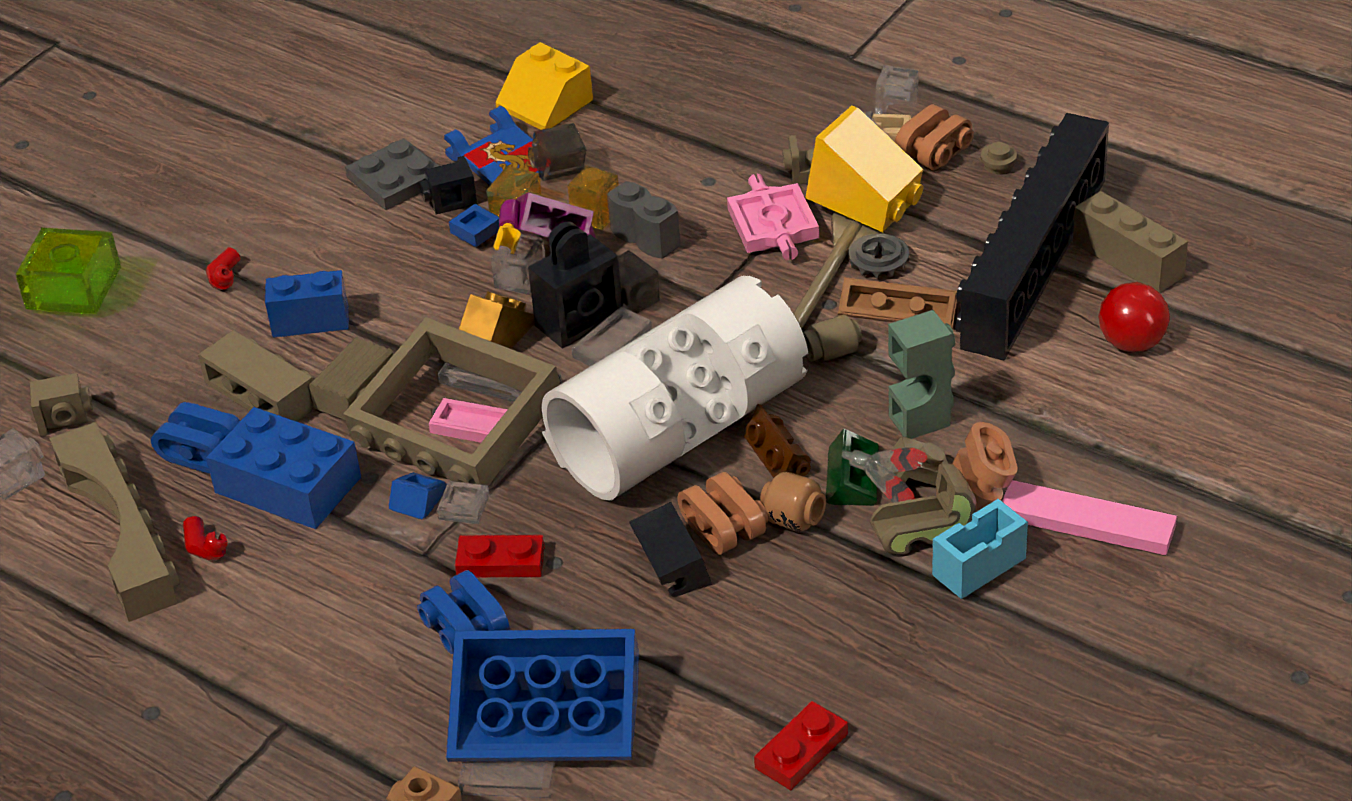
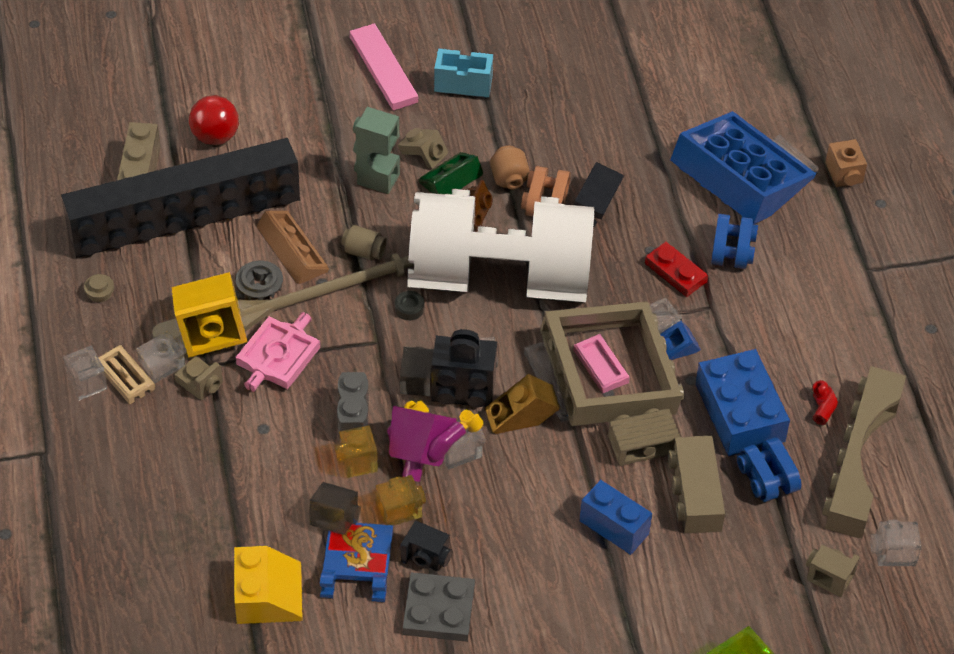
camera: 140 degrees left, 10 degrees up
(219, 269) = (636, 612): red arm -> none
(474, 225) = (446, 502): blue plate -> none
(801, 745) = (645, 74): red plate -> none
(883, 464) = (451, 153): clear piece -> none
(927, 517) = (459, 112): dark tan animal -> none
(934, 136) = (114, 325): nougat brick -> none
(986, 462) = (407, 102): nougat brick -> none

